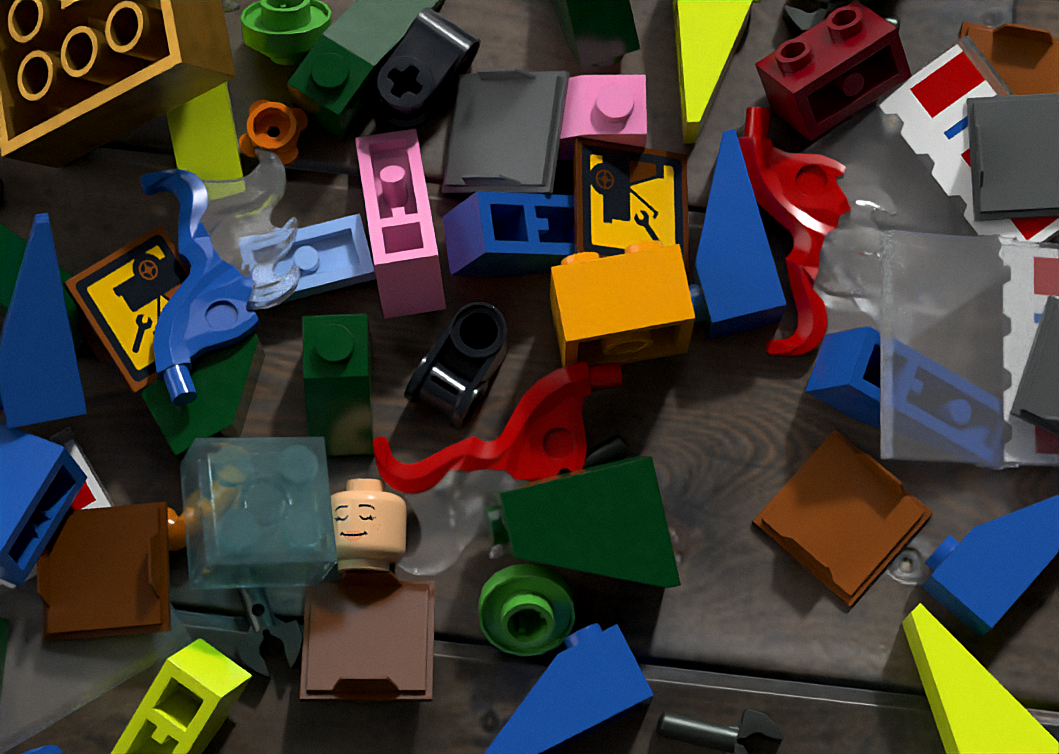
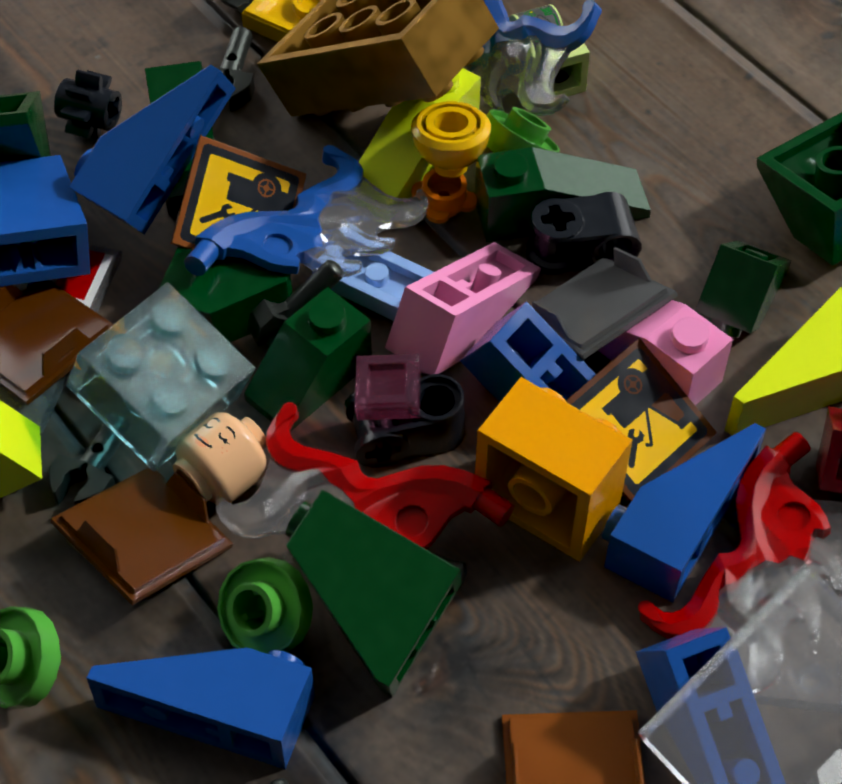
camera: 45 degrees right, 20 degrees down
(259, 86) = (450, 136): none -> yellow brick
(280, 366) = (269, 316): none -> pearl dark grey bar
(438, 356) = (387, 387): none -> clear pink tile

